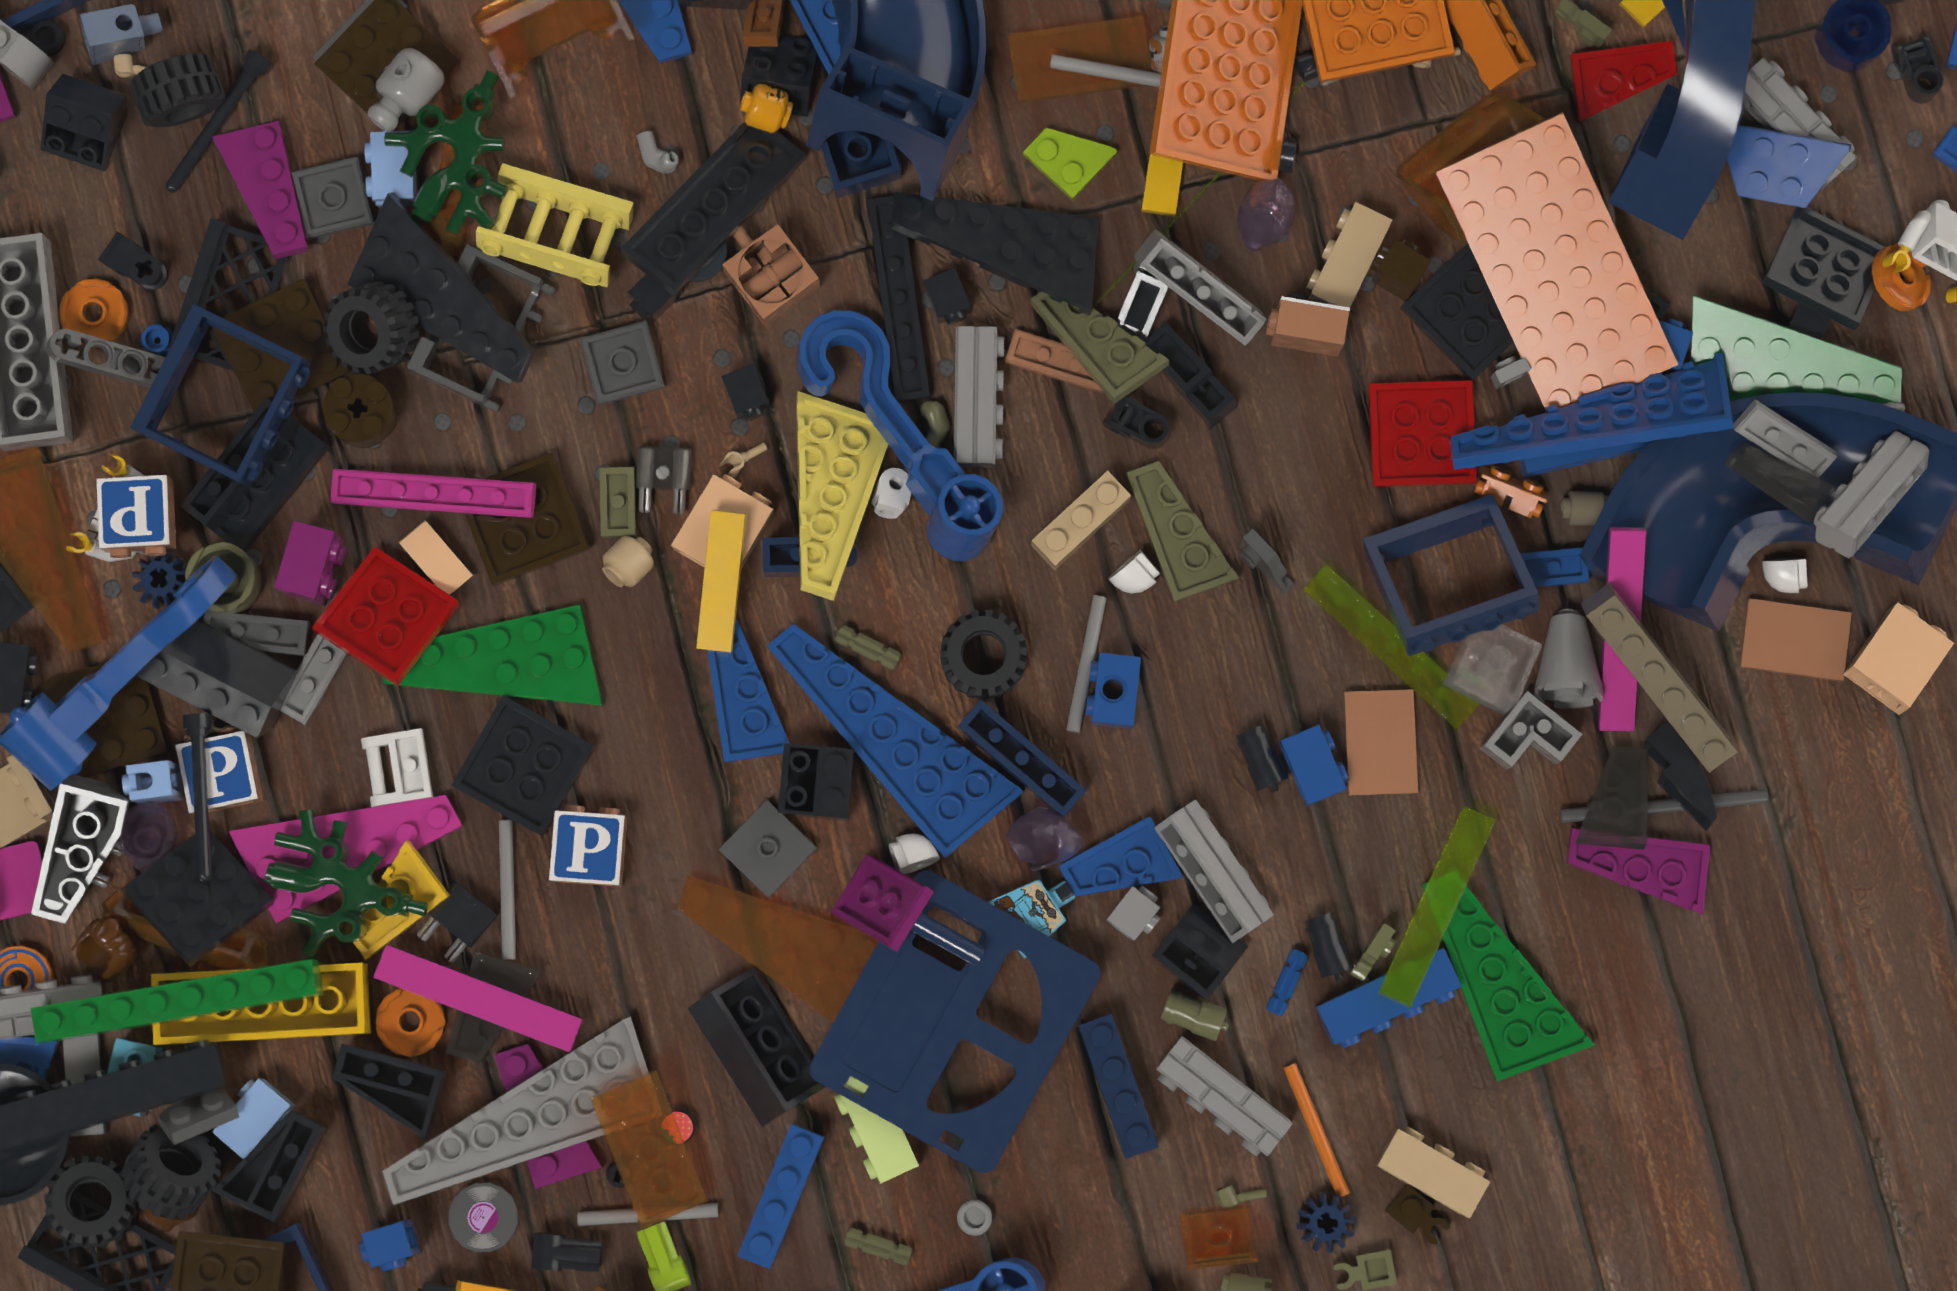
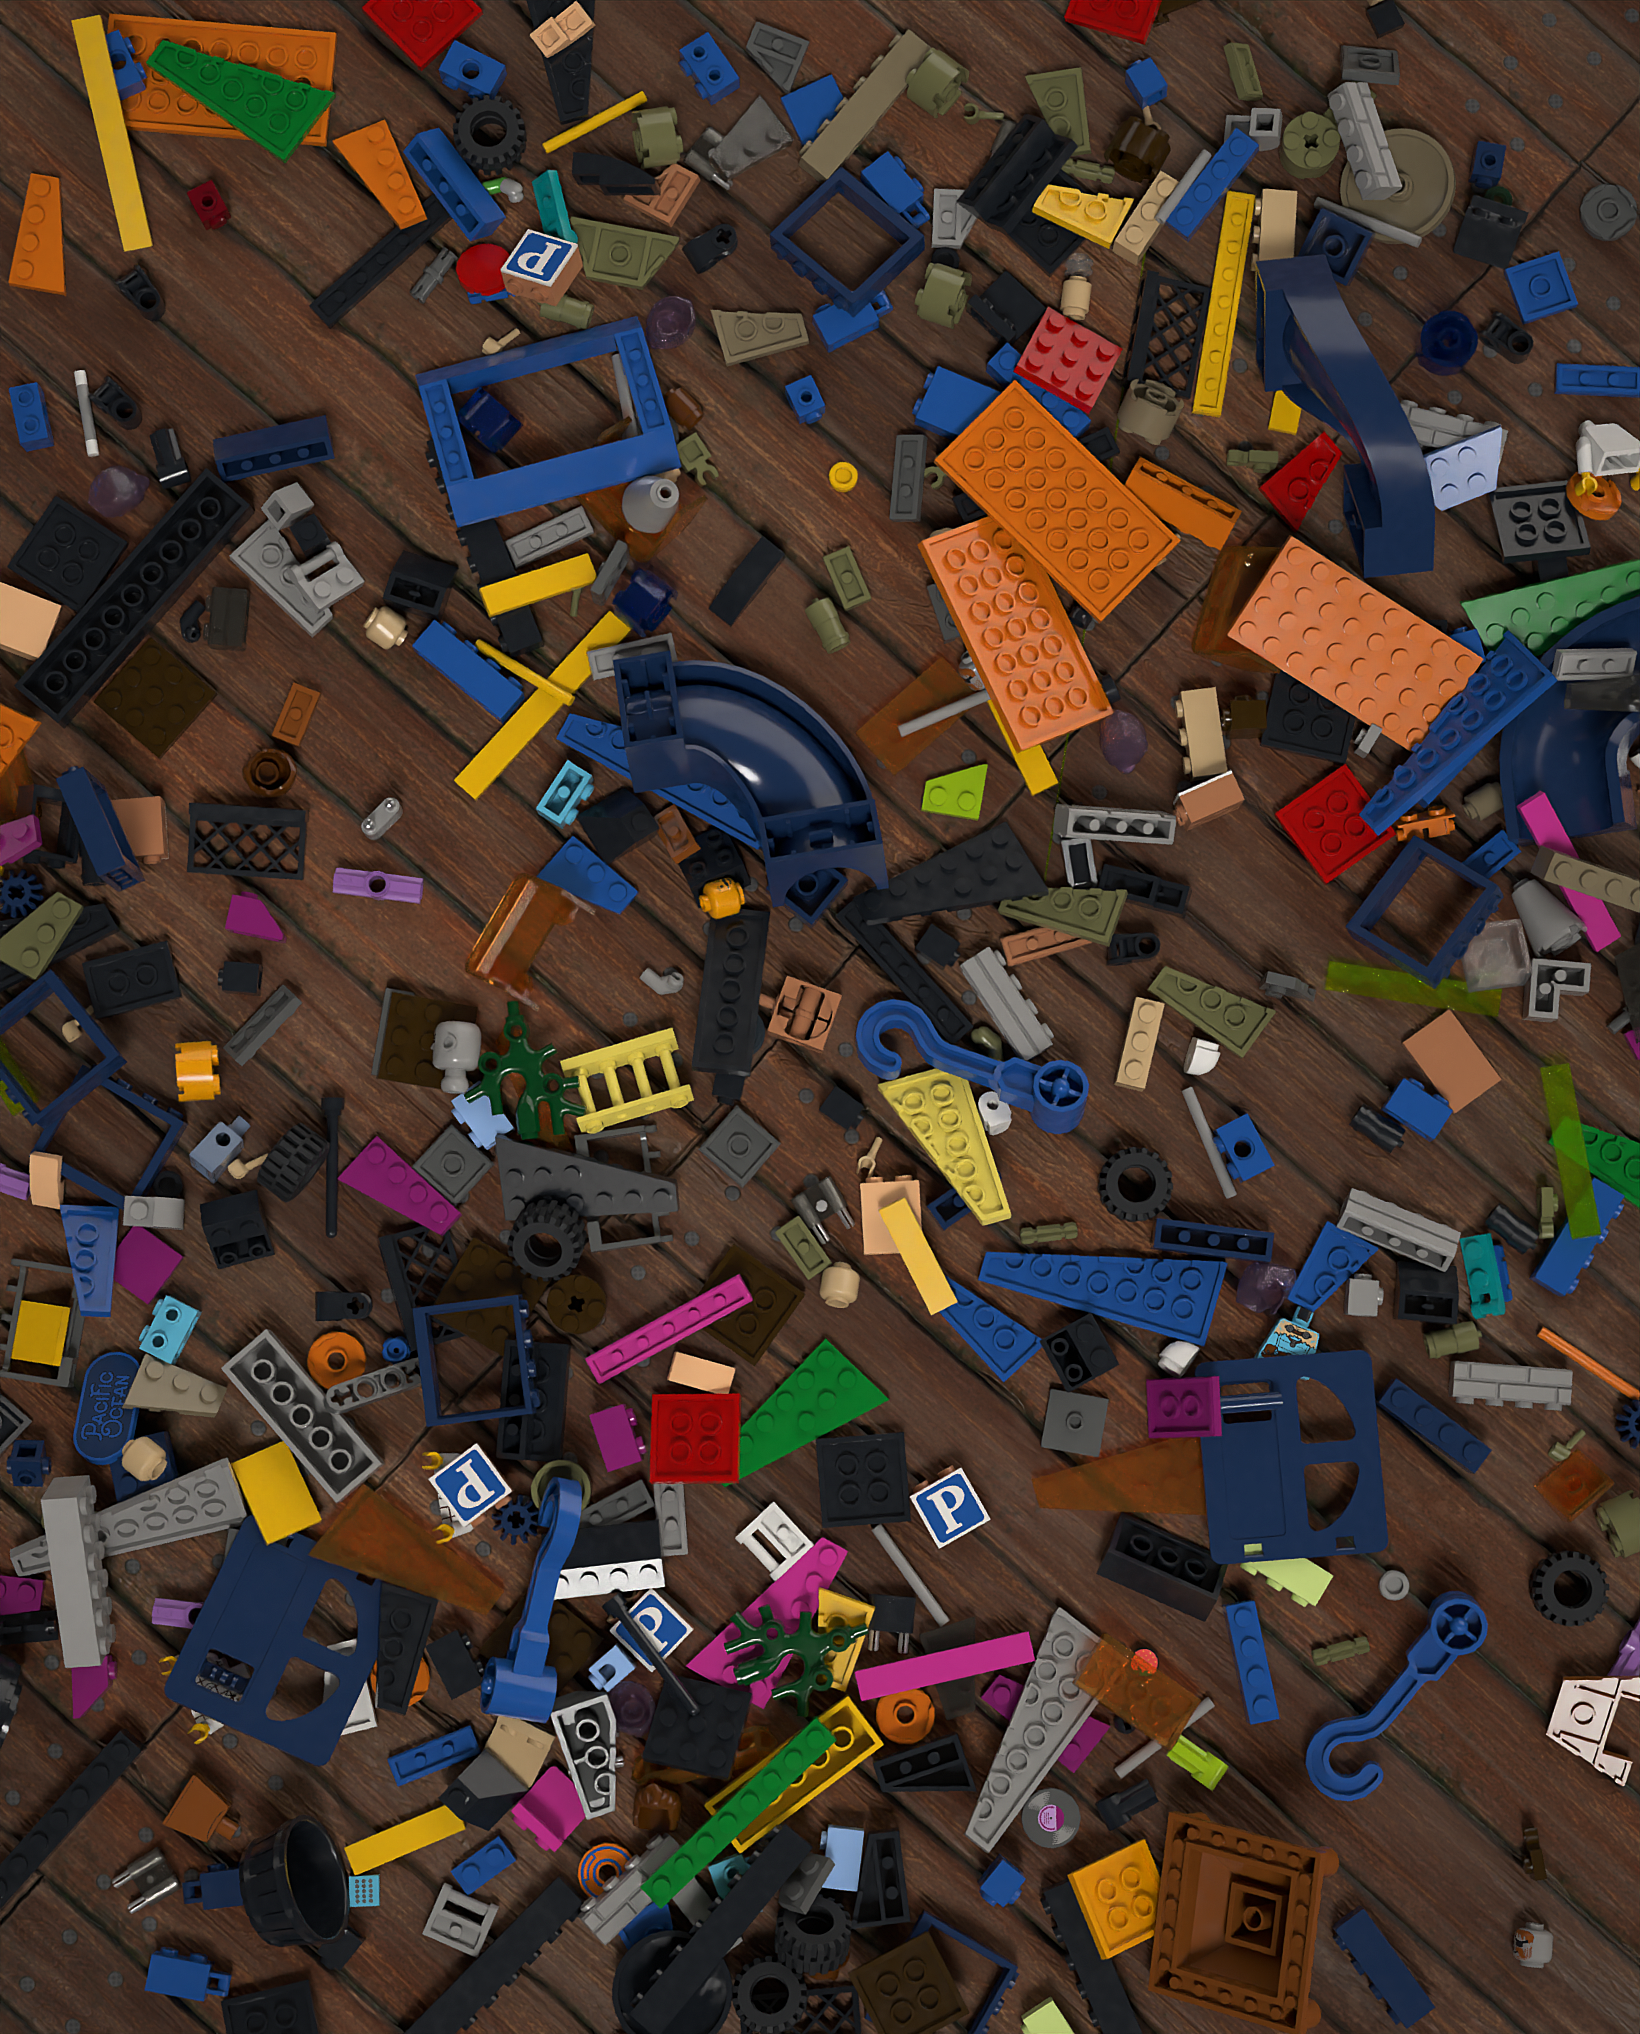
camera: 35 degrees left, 0 degrees up
(1268, 972) = (1482, 1275): none -> teal plate

